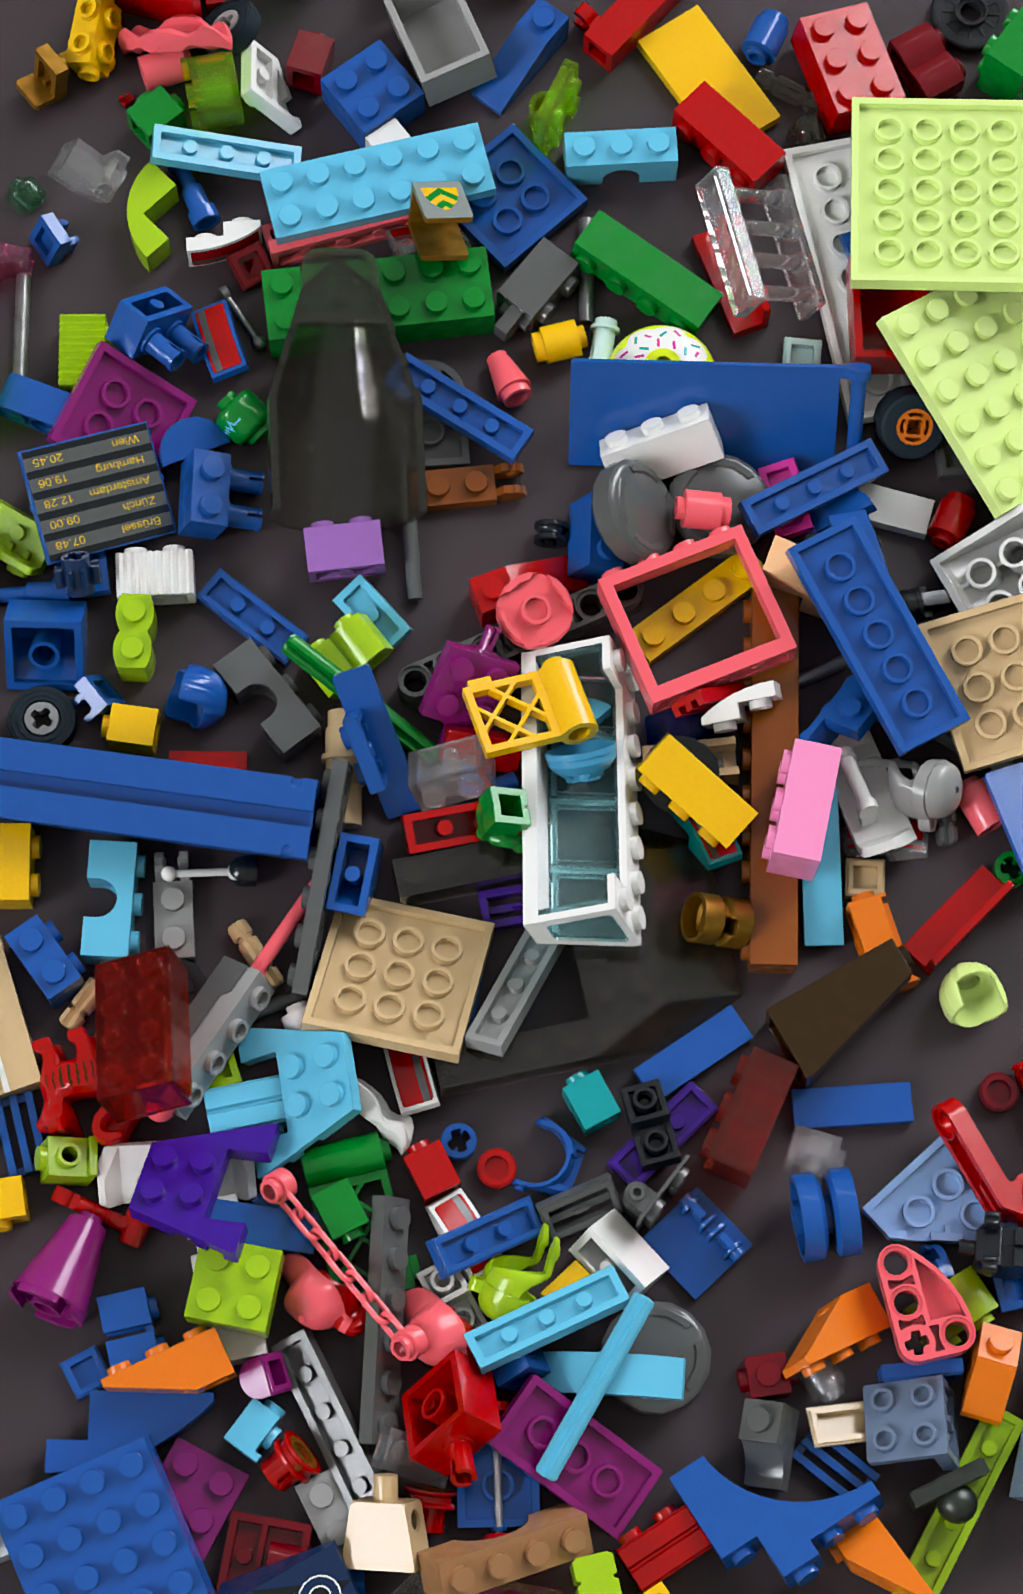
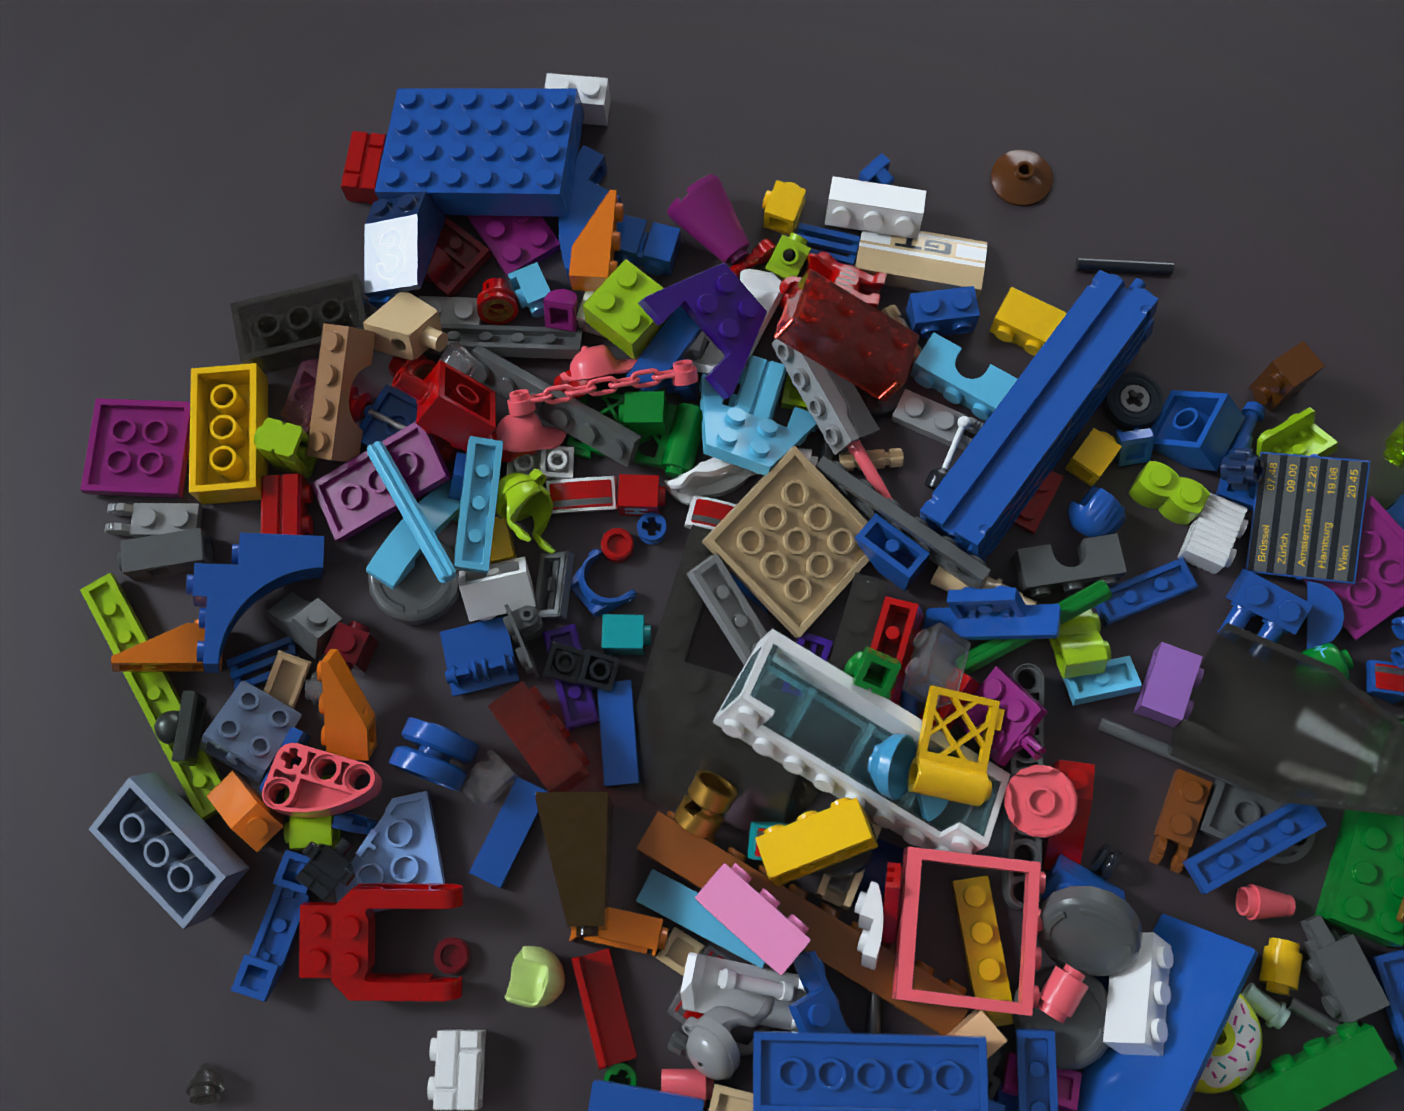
camera: 125 degrees right, 0 degrees up
(85, 1372) = (640, 207): blue tile -> none
(484, 1237) = (568, 502): blue tile -> none

